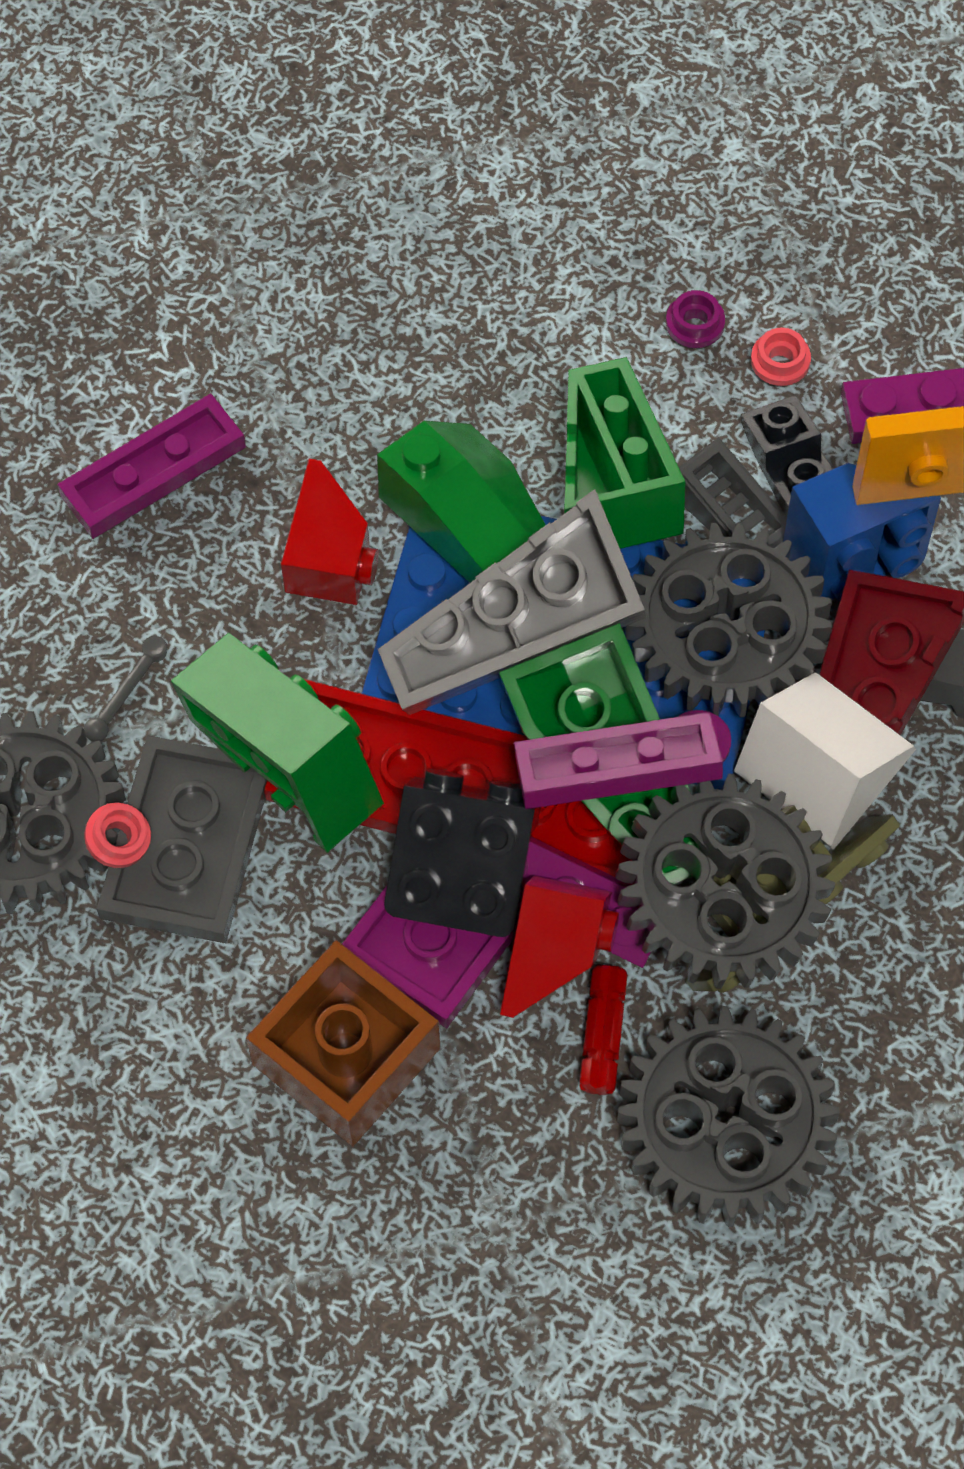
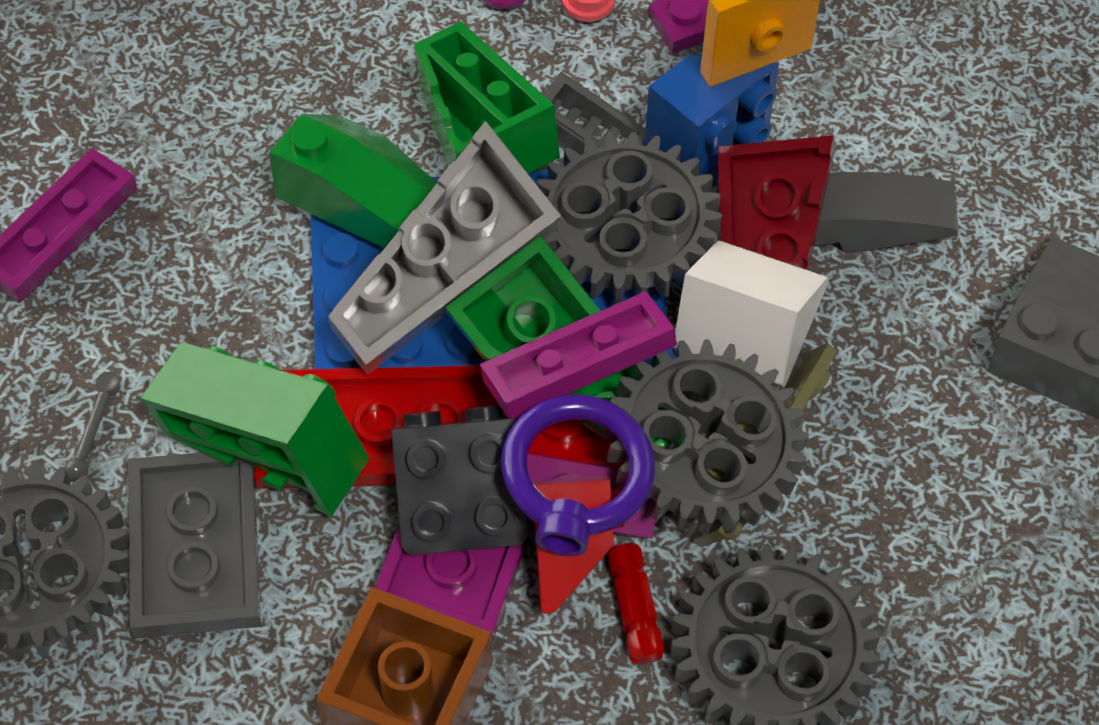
camera: 20 degrees left, 5 degrees down
(128, 820) = (135, 537): coral plate -> none
(327, 542) = (242, 247): red slope -> none
(545, 935) = (566, 523): none -> dark purple piece
(785, 446) = (619, 70): black slope -> none

